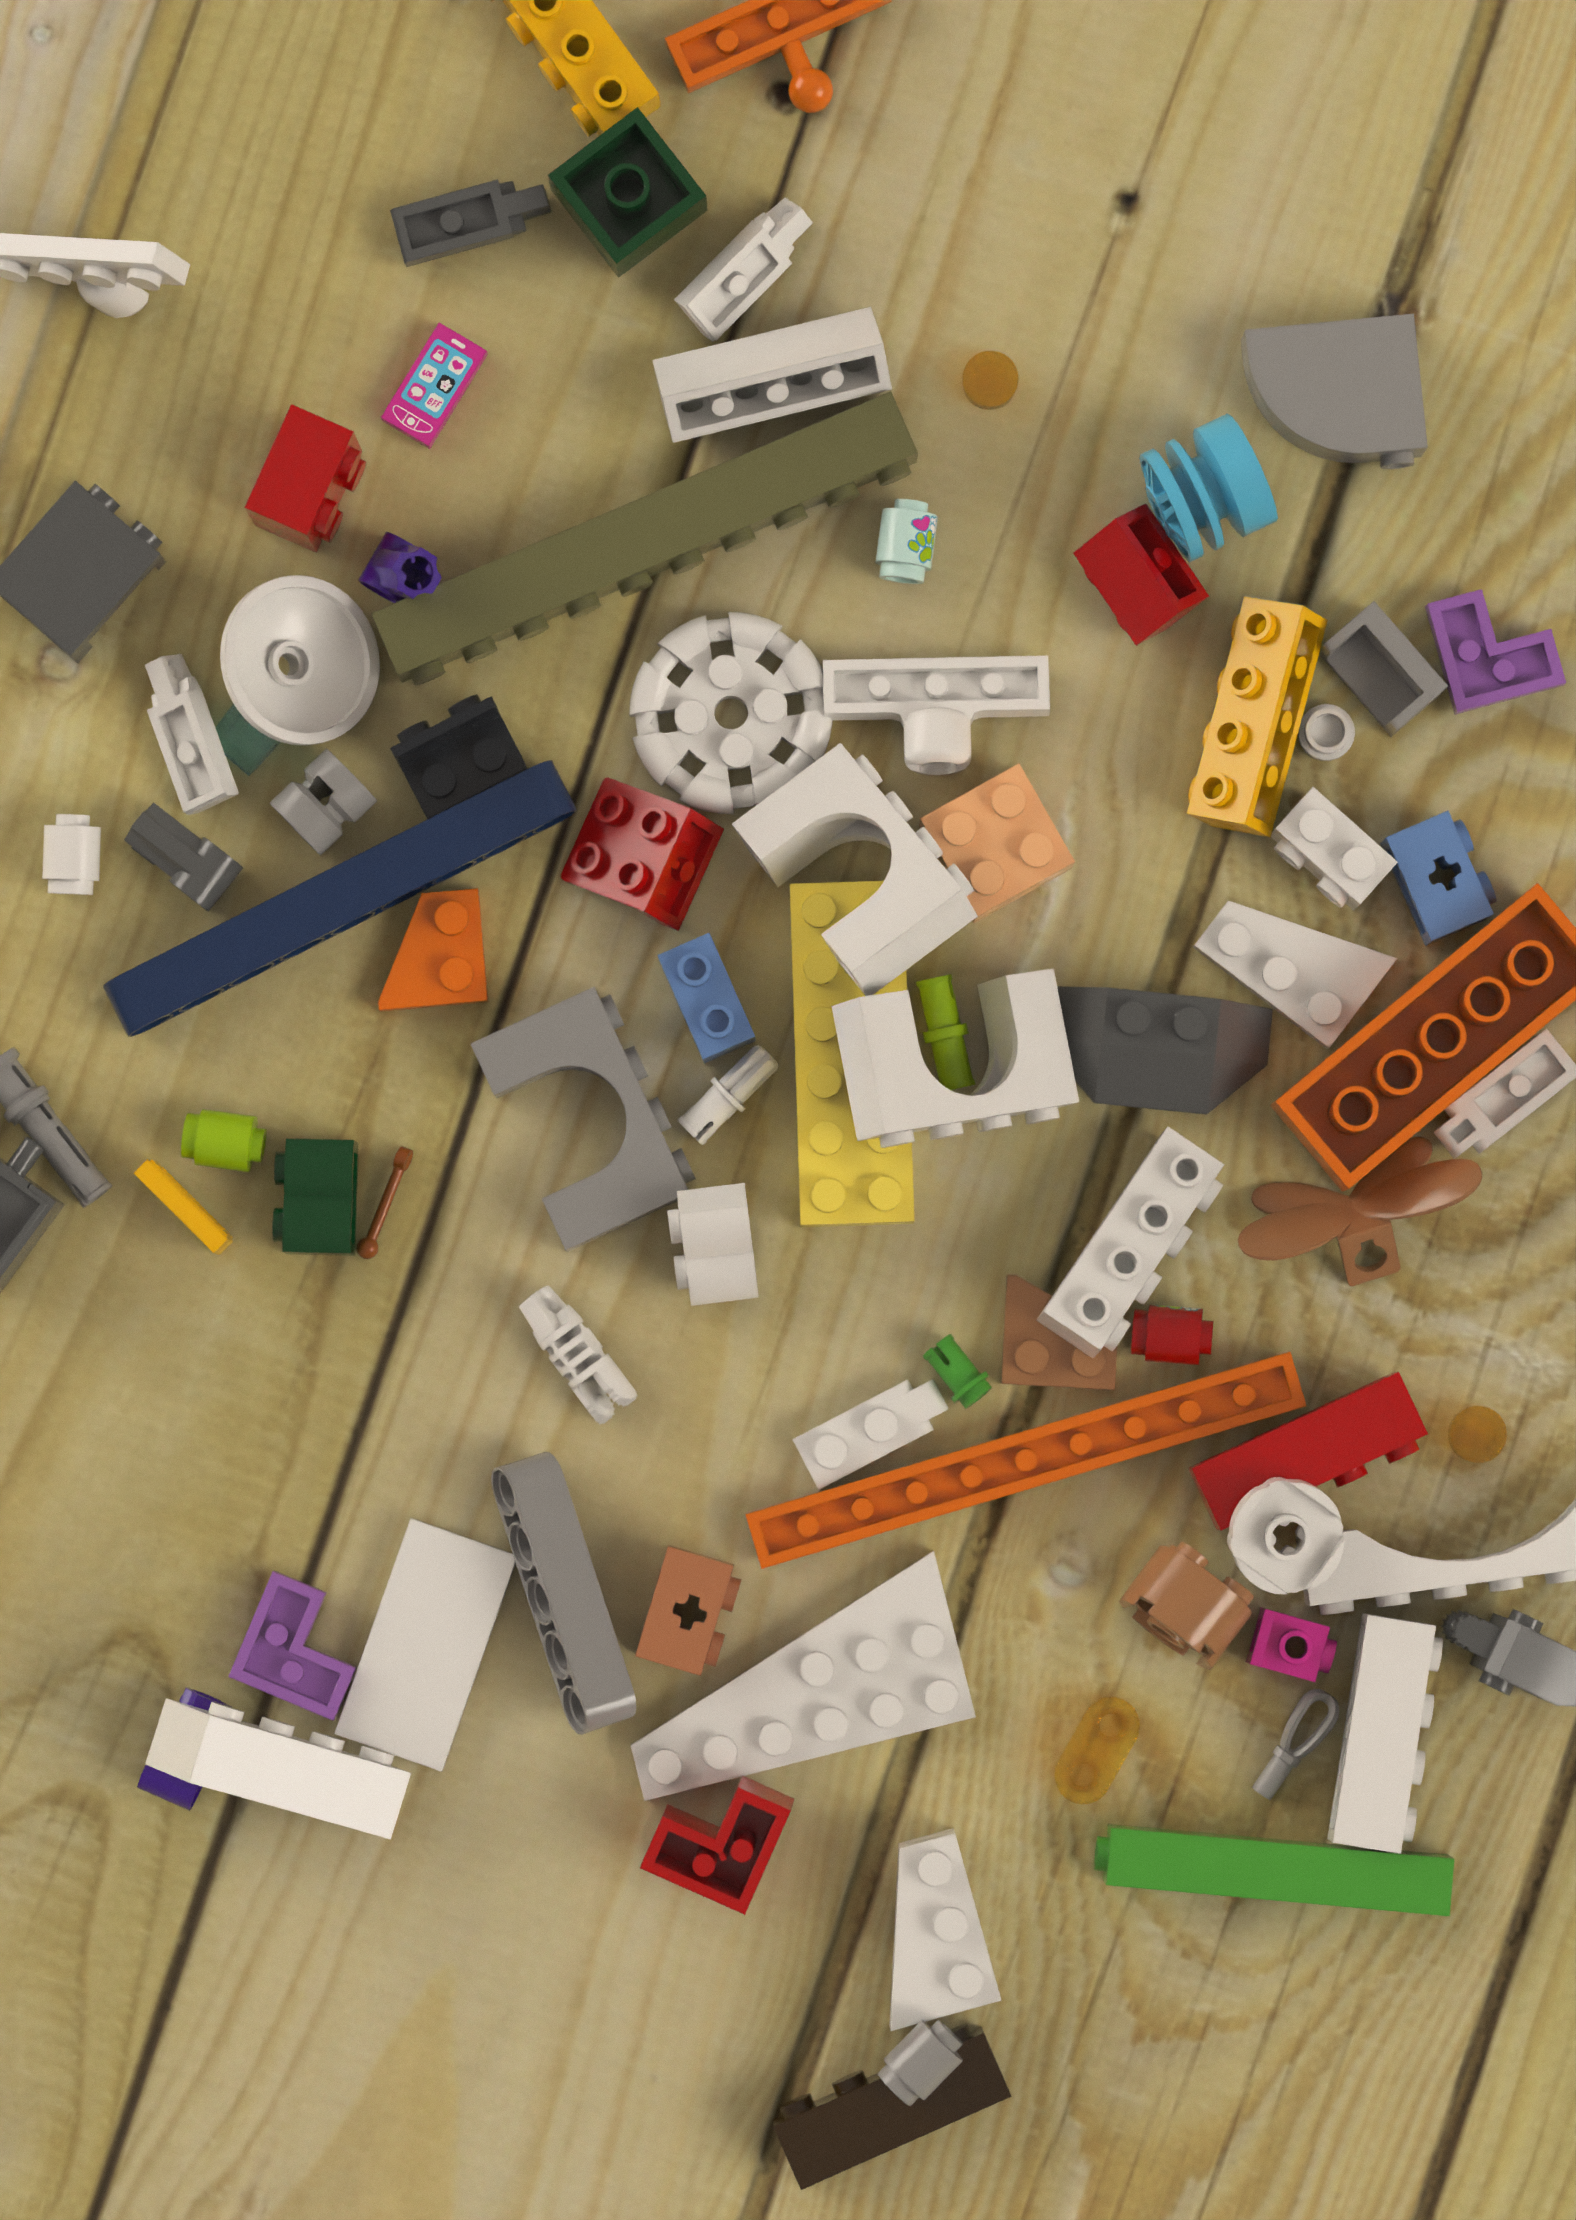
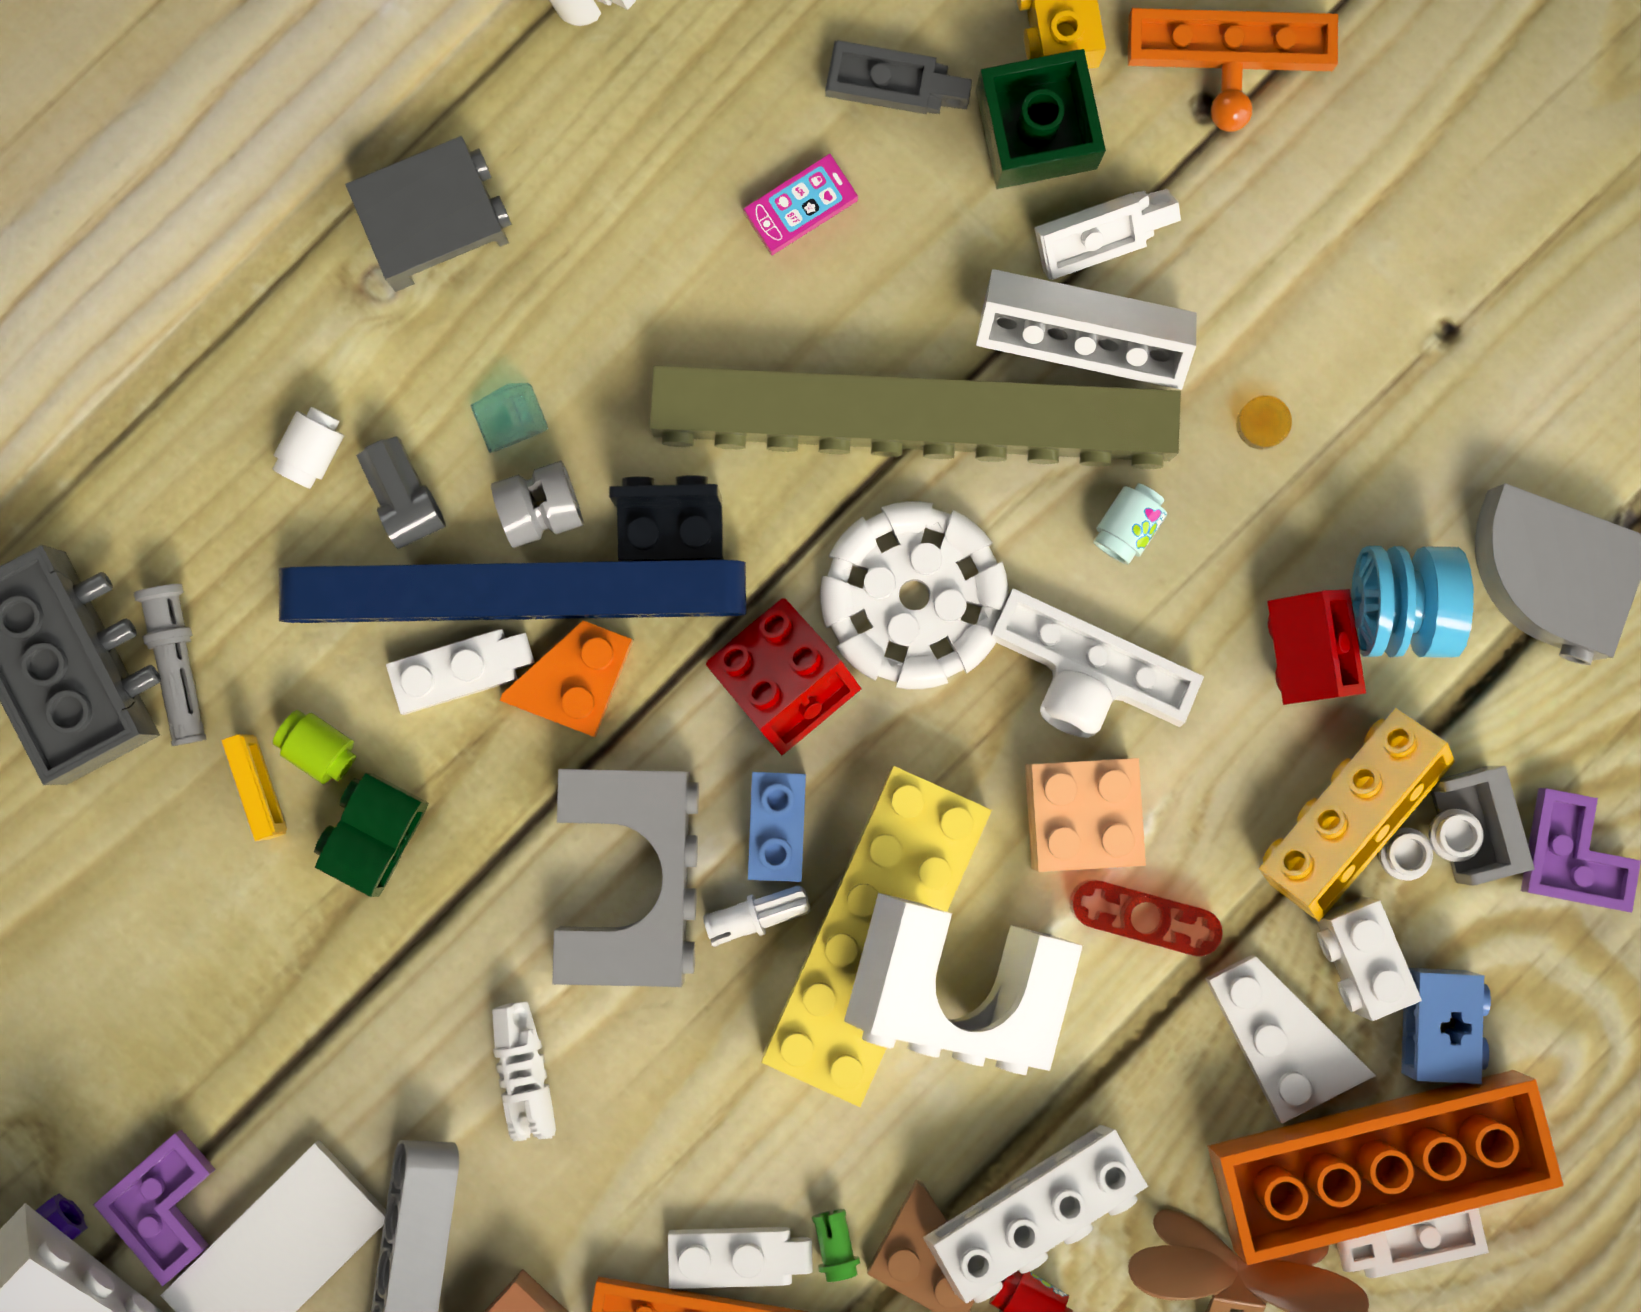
camera: 20 degrees right, 0 degrees up
(188, 736) = (453, 394): white hinge -> none
(306, 479) = (653, 226): red brick -> none
(324, 1000) = (458, 670): none -> white hinge
(328, 655) = (604, 384): white dish -> none
(367, 1246) = (394, 893): dark orange hinge -> none
(400, 570) = (695, 341): dark purple piece -> none
(716, 1244) = (682, 1040): white brick -> none
(838, 804) = (1000, 837): white arch -> none
(945, 1032) = (964, 952): lime pin -> none
(1148, 920) = (1186, 914): none -> clear red beam
(1162, 1047) = (1140, 1055): dark grey wedge -> none
(1363, 690) = (1455, 835): none -> white plate

